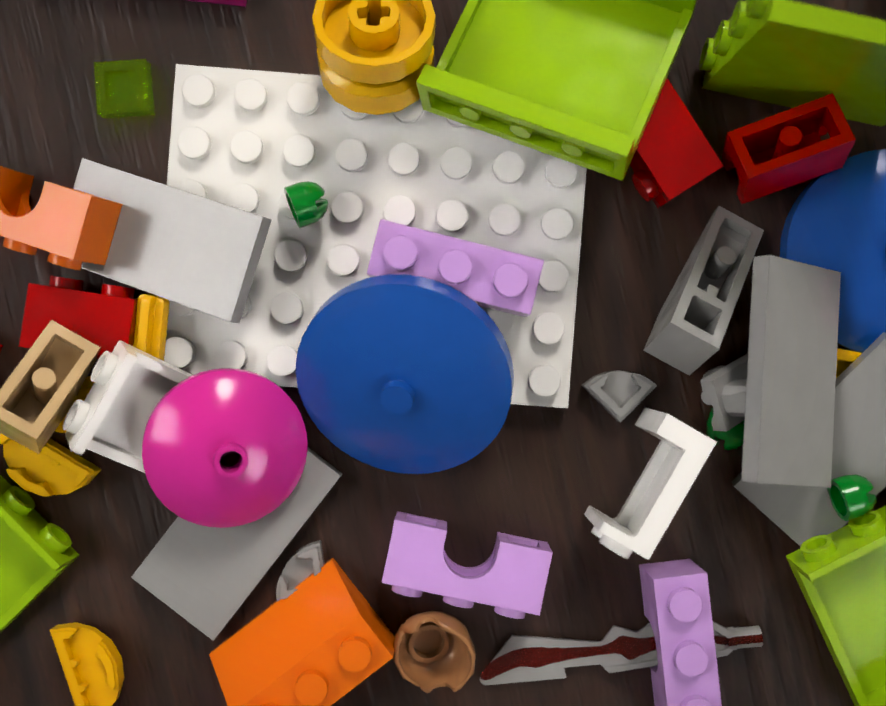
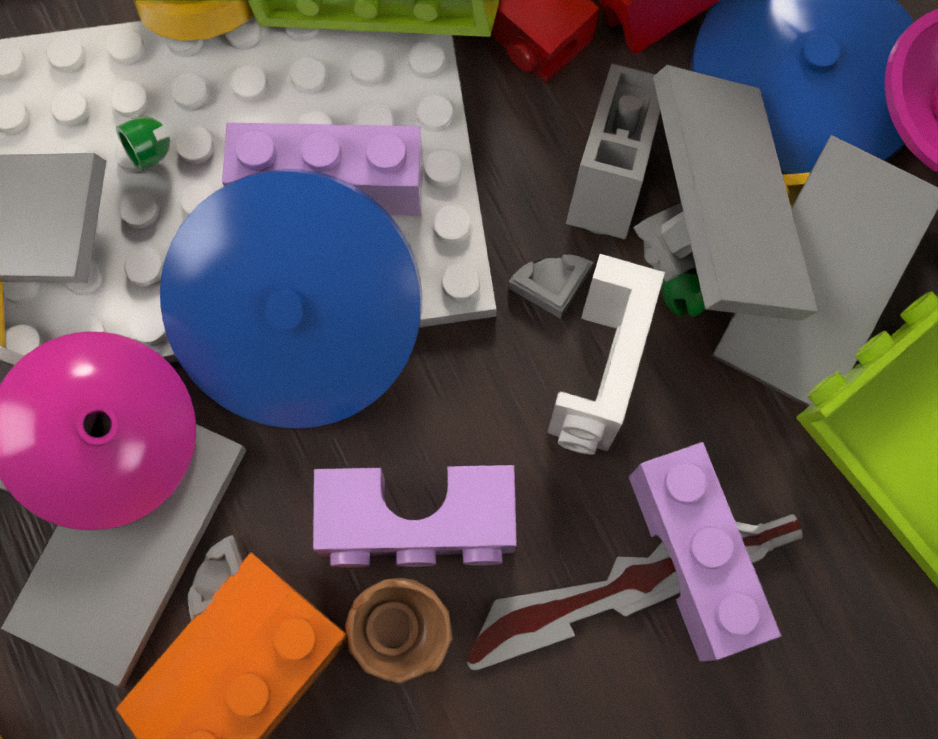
camera: 10 degrees left, 15 degrees down
(851, 496) = (845, 322): green hinge -> none

